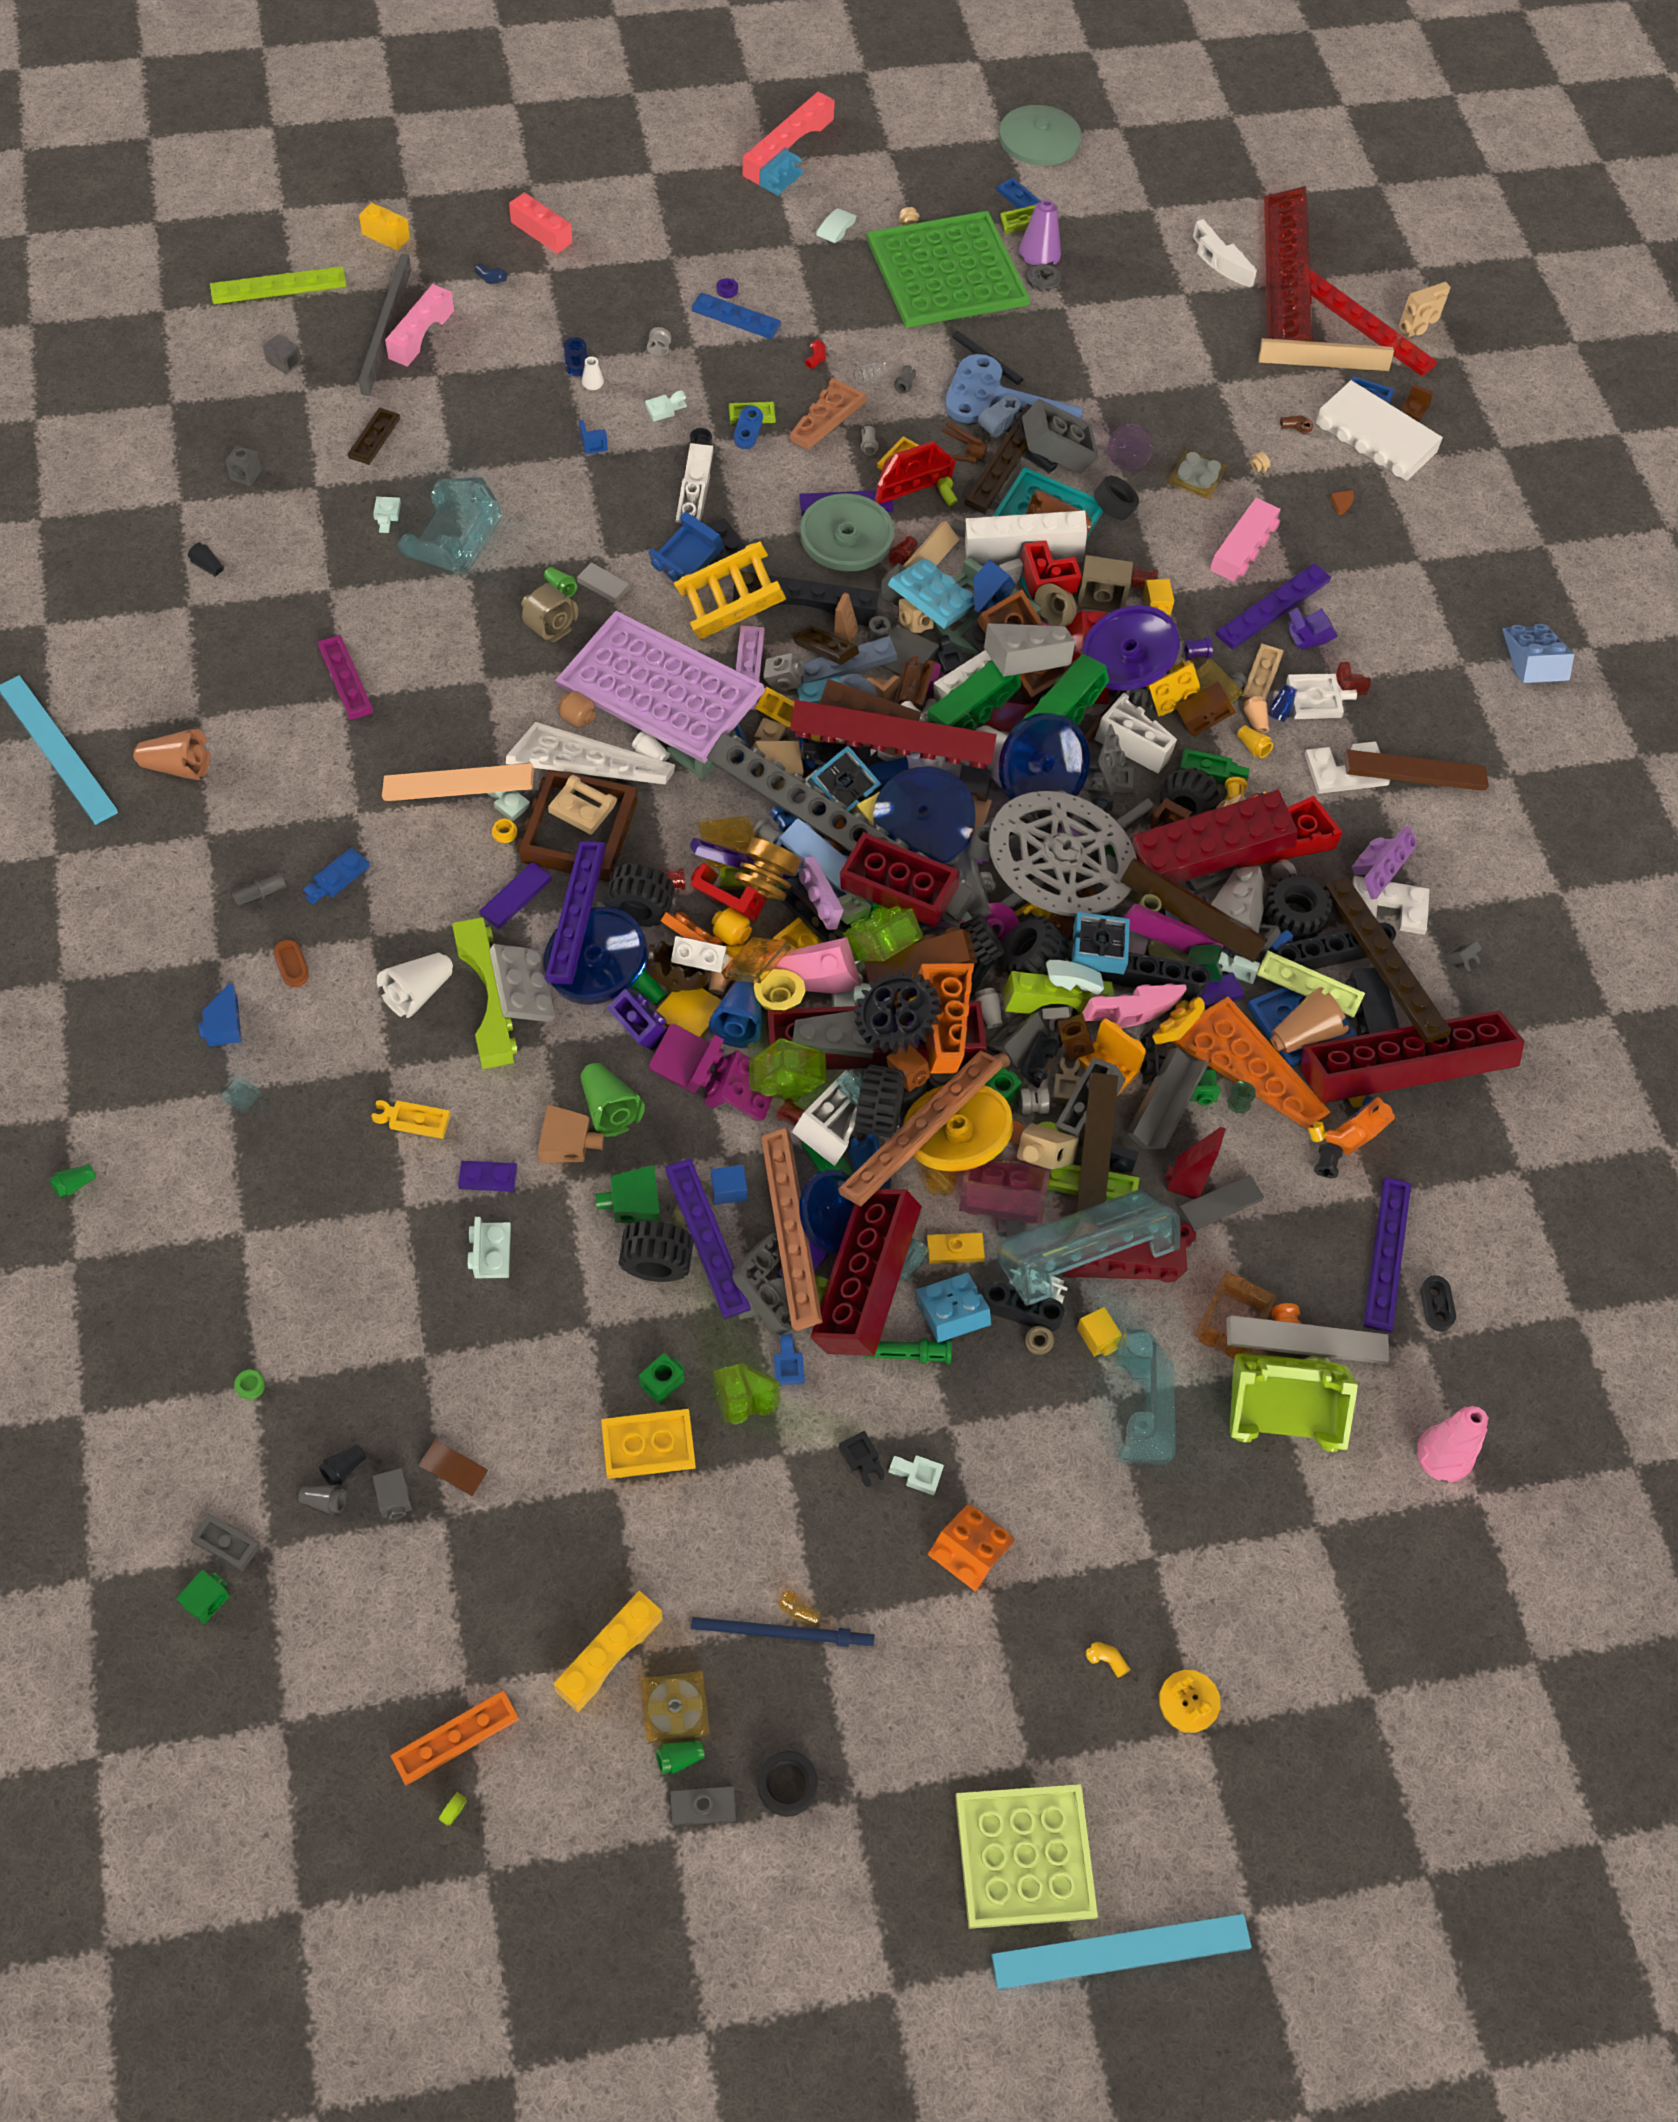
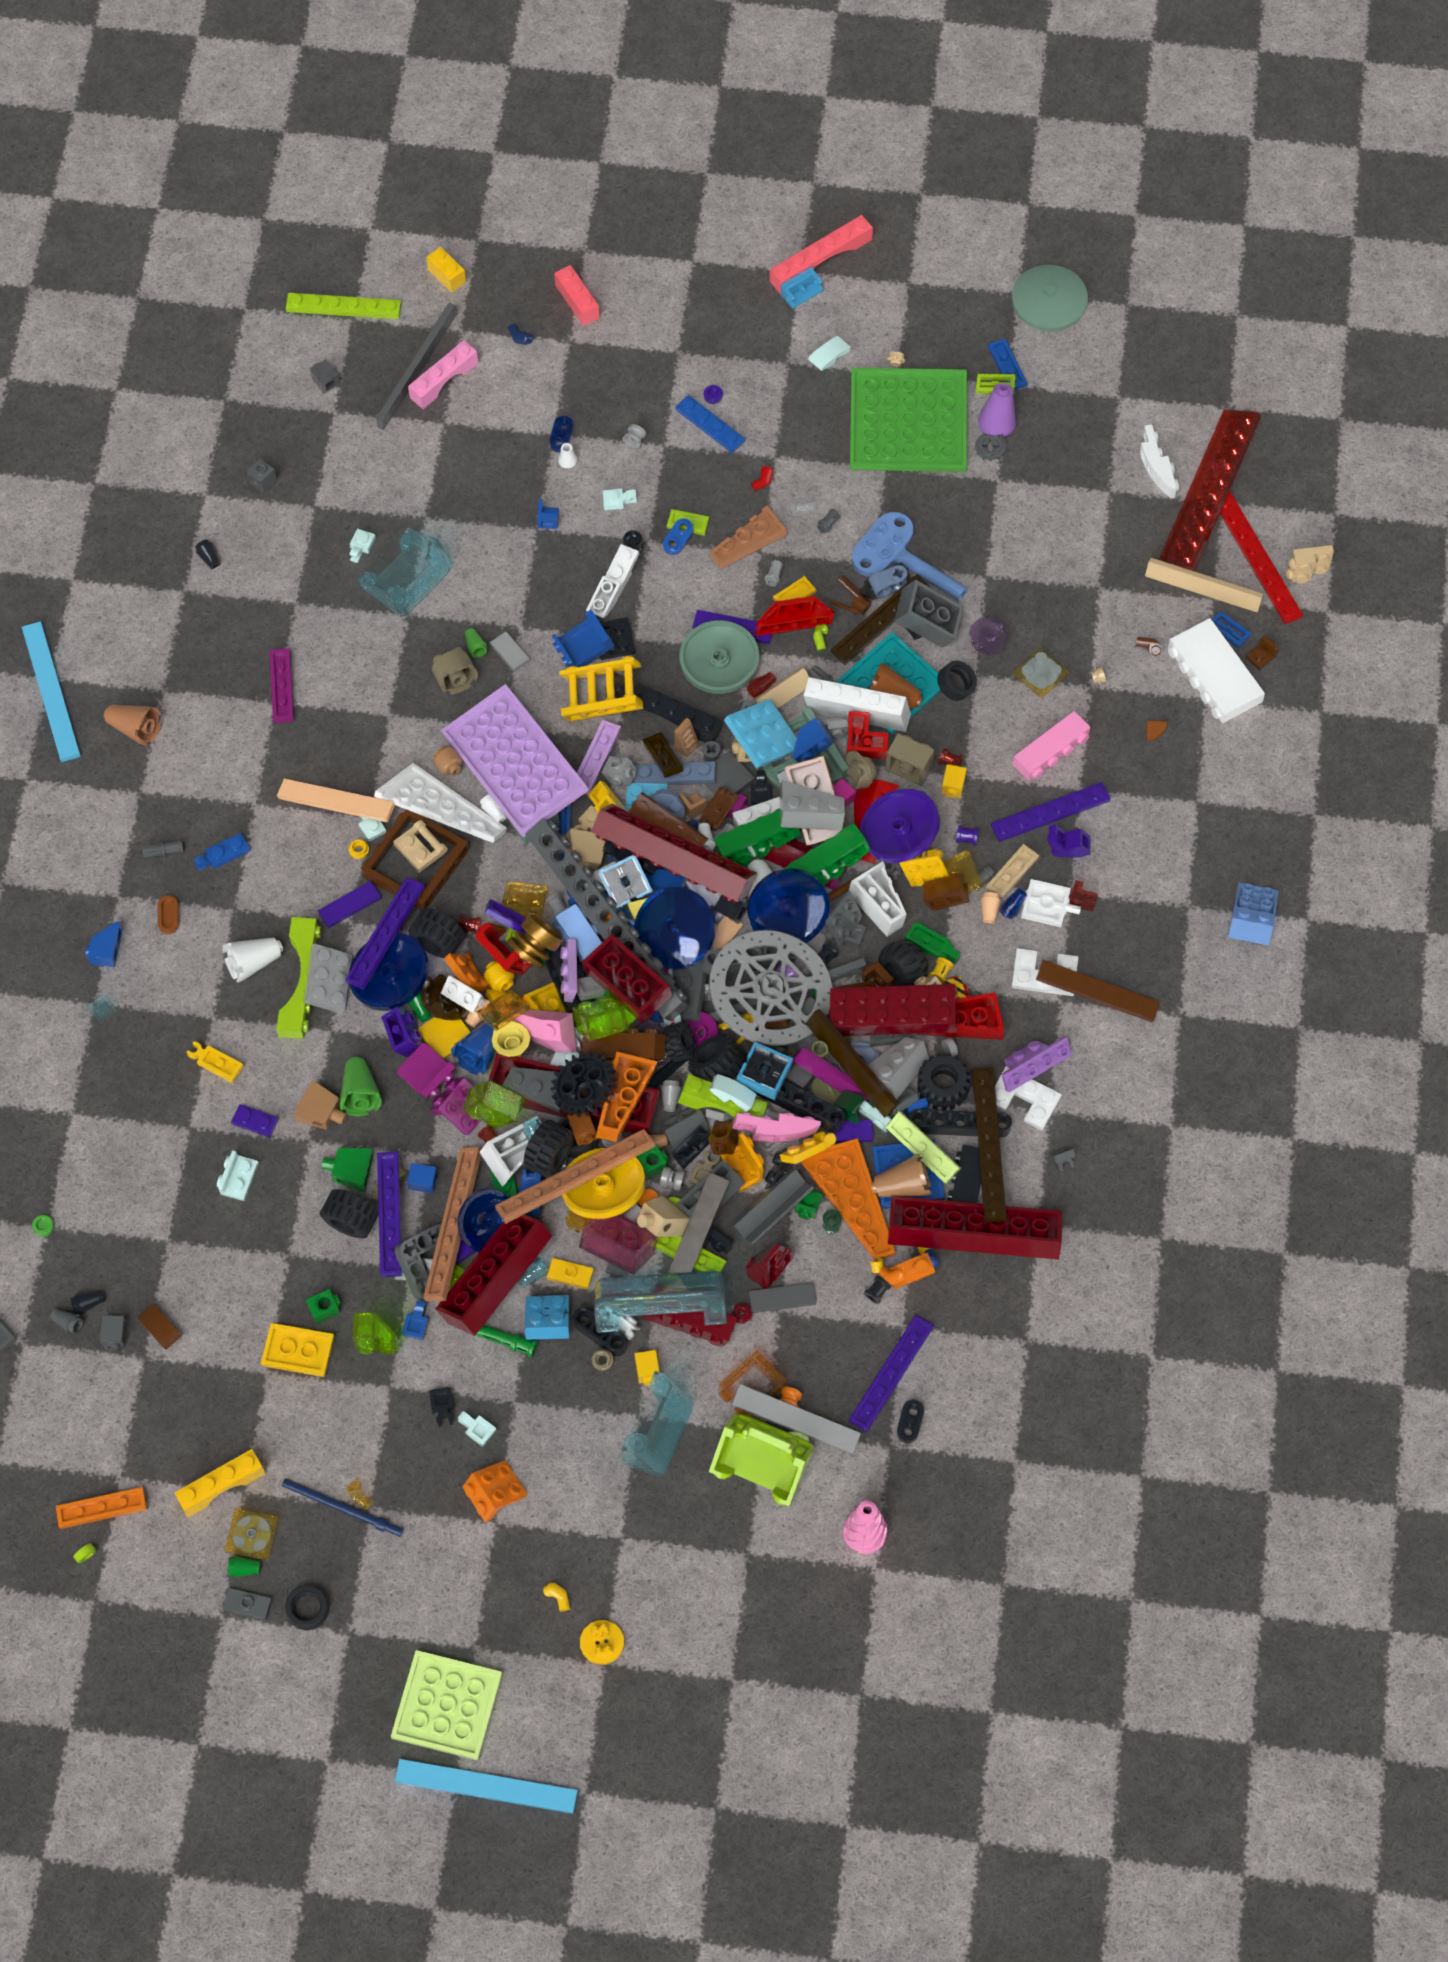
camera: 25 degrees right, 5 degrees up
(374, 436) = (374, 470): dark brown tile -> none
(973, 347) = (905, 510): black bar -> none
(1256, 742) = (978, 931): yellow cone -> none

